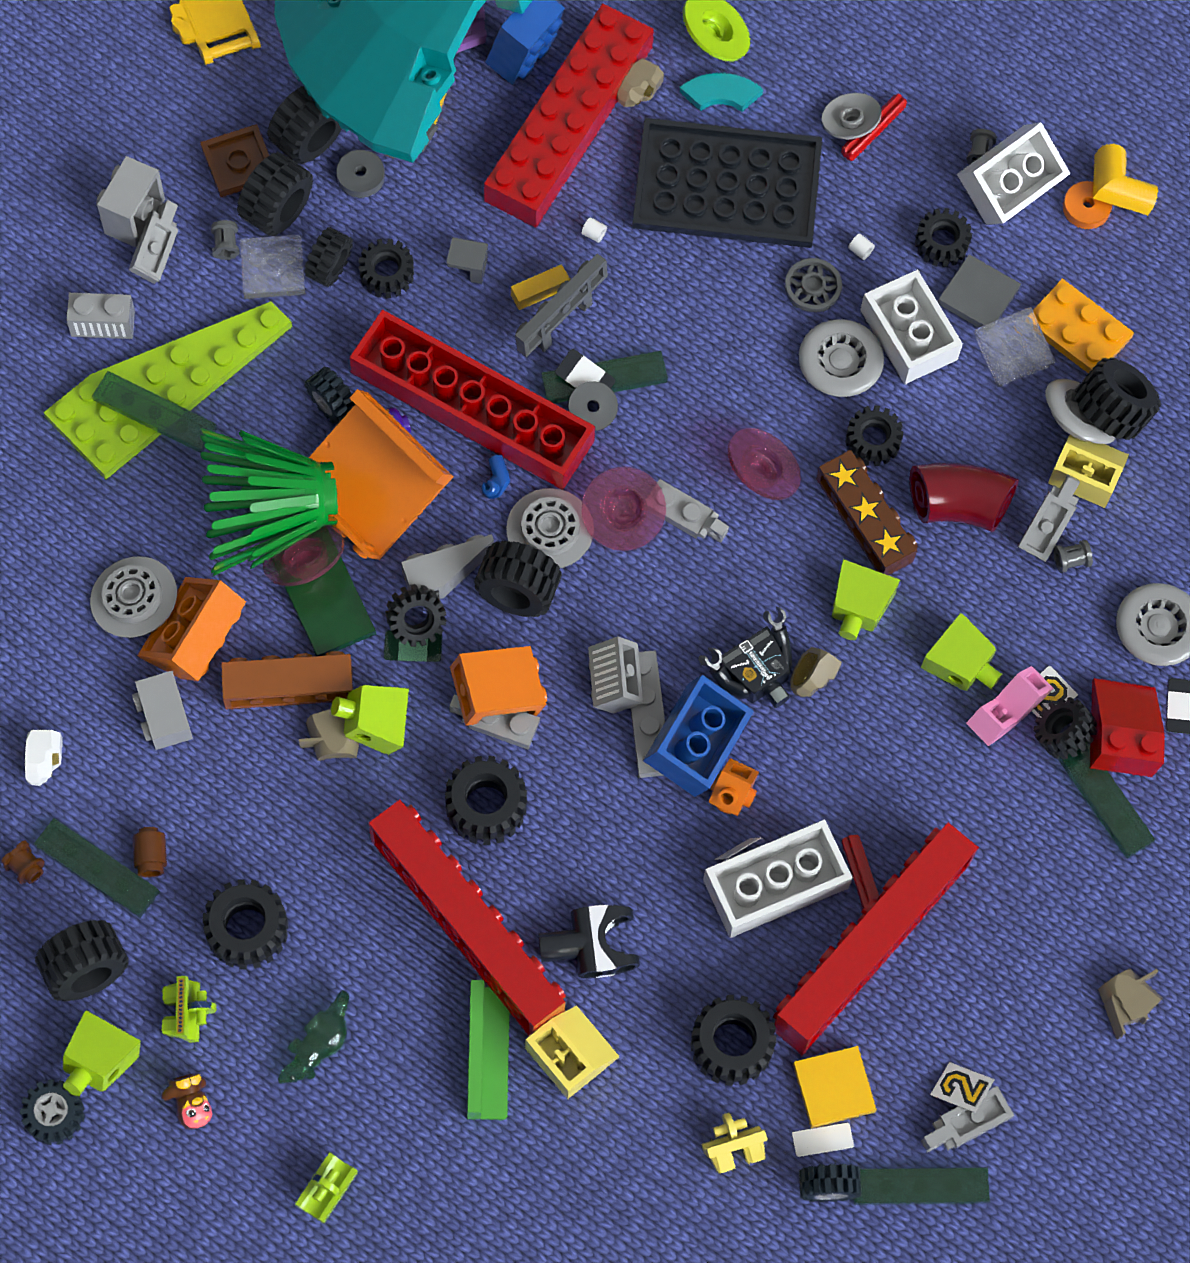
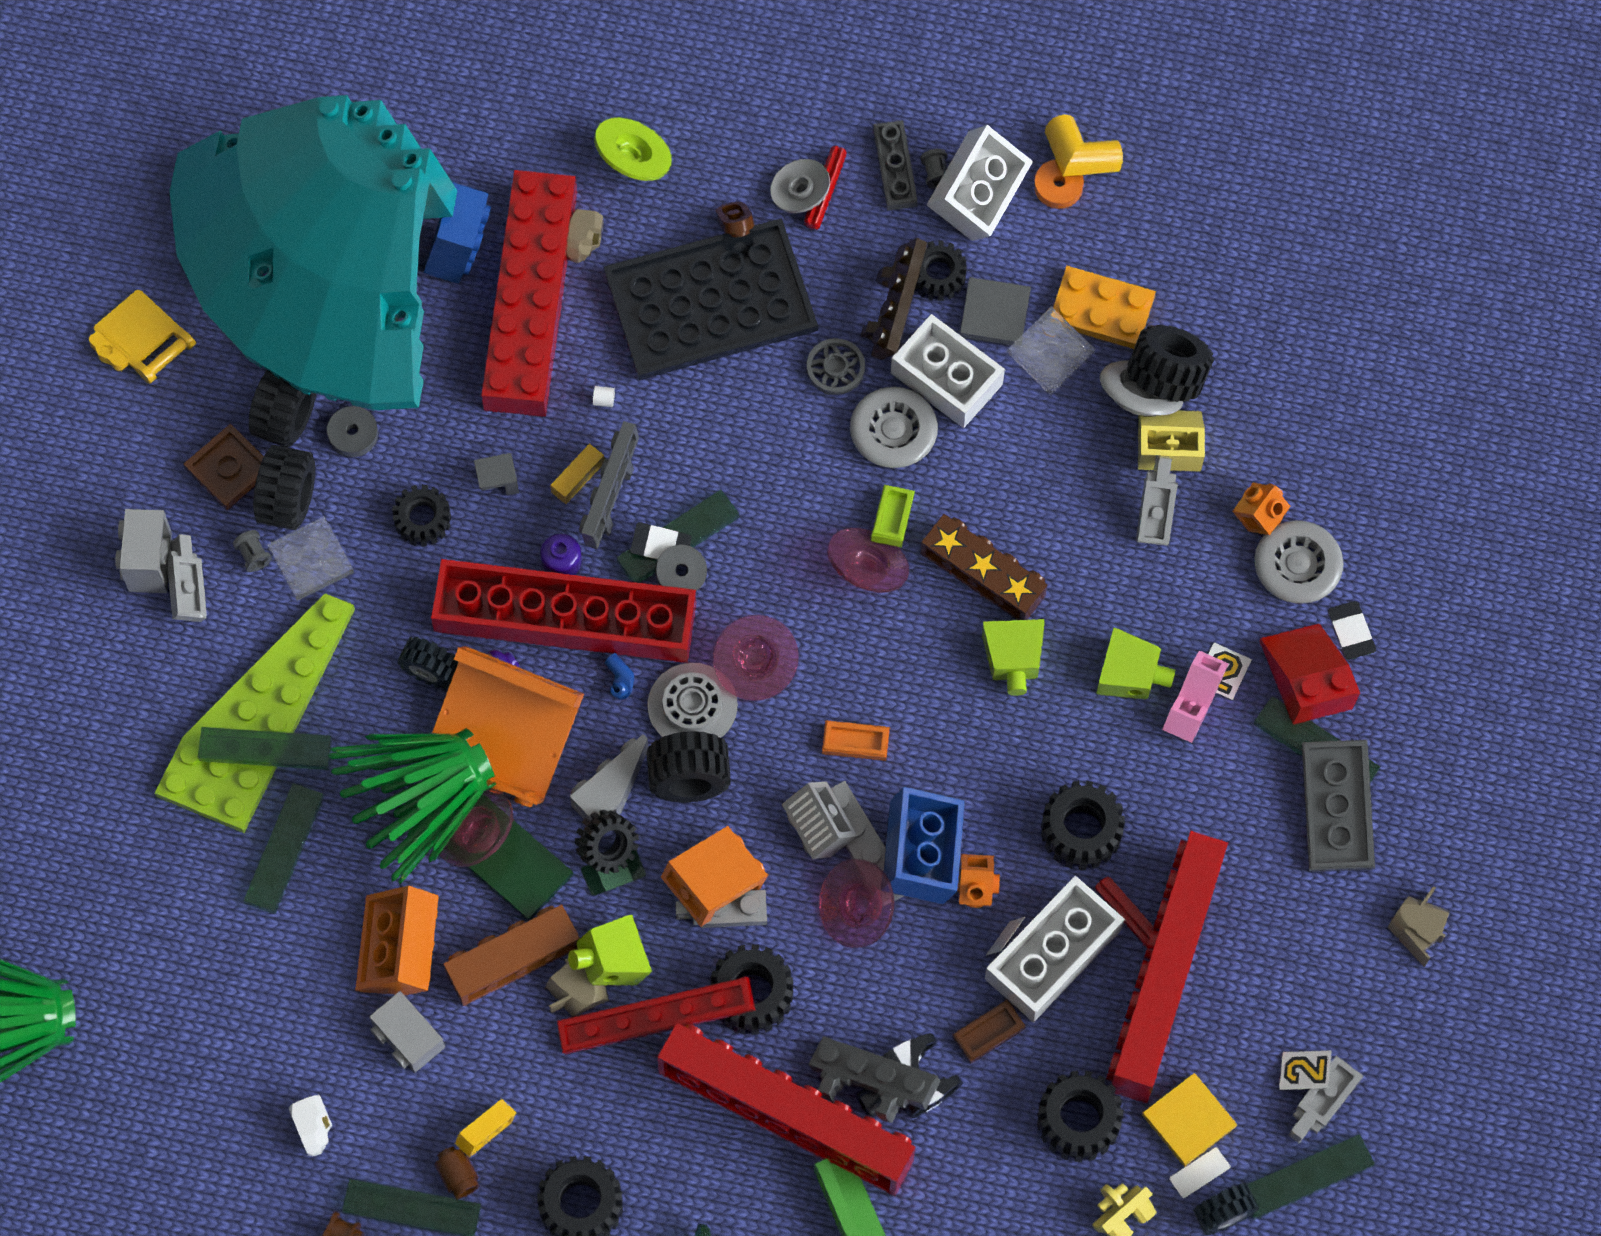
camera: 20 degrees left, 0 degrees up
(100, 315) = (166, 675): light grey brick -> none
(129, 587) = (325, 934): light grey wheel -> none
(132, 506) = (283, 848): none -> clear green tile
(192, 823) = (485, 1128): none -> yellow piece
(328, 257) = (363, 527): black tyre -> none
(388, 787) = (655, 1015): none -> red tile
(492, 349) = (561, 554): none -> dark purple head
(570, 1050) = (935, 1190): light yellow slope -> none
(573, 934) = (892, 1080): none -> dark grey hinge
(615, 762) = (856, 903): none -> clear pink hat
(682, 619) = (855, 740): none -> orange tile
(685, 929) = (988, 1031): none -> reddish brown tile
(691, 514) = (820, 636): light grey hinge -> none
(721, 89) = (662, 208): teal tile -> none
(755, 665) = (945, 754): torso -> none
(779, 121) = (735, 218): none -> reddish brown plate
(805, 435) = (892, 516): none -> lime tile
(814, 671) = (1001, 739): rock -> none
(860, 754) = (1090, 801): none -> black tyre
(861, 246) = (865, 310): white piece -> none
(880, 420) = (958, 472): black tyre -> none
(884, 255) = (901, 282): none -> dark brown hinge
(944, 144) = (896, 179): none -> dark grey tile
(961, 494) = (1063, 514): dark red brick -> none
(1056, 719) = (1268, 702): black tyre -> none
(1073, 556) = (1191, 530): dark grey bush -> none
(1099, 858) = (1338, 805): none -> dark grey tile
(1146, 562) = (1261, 508): none -> orange brick

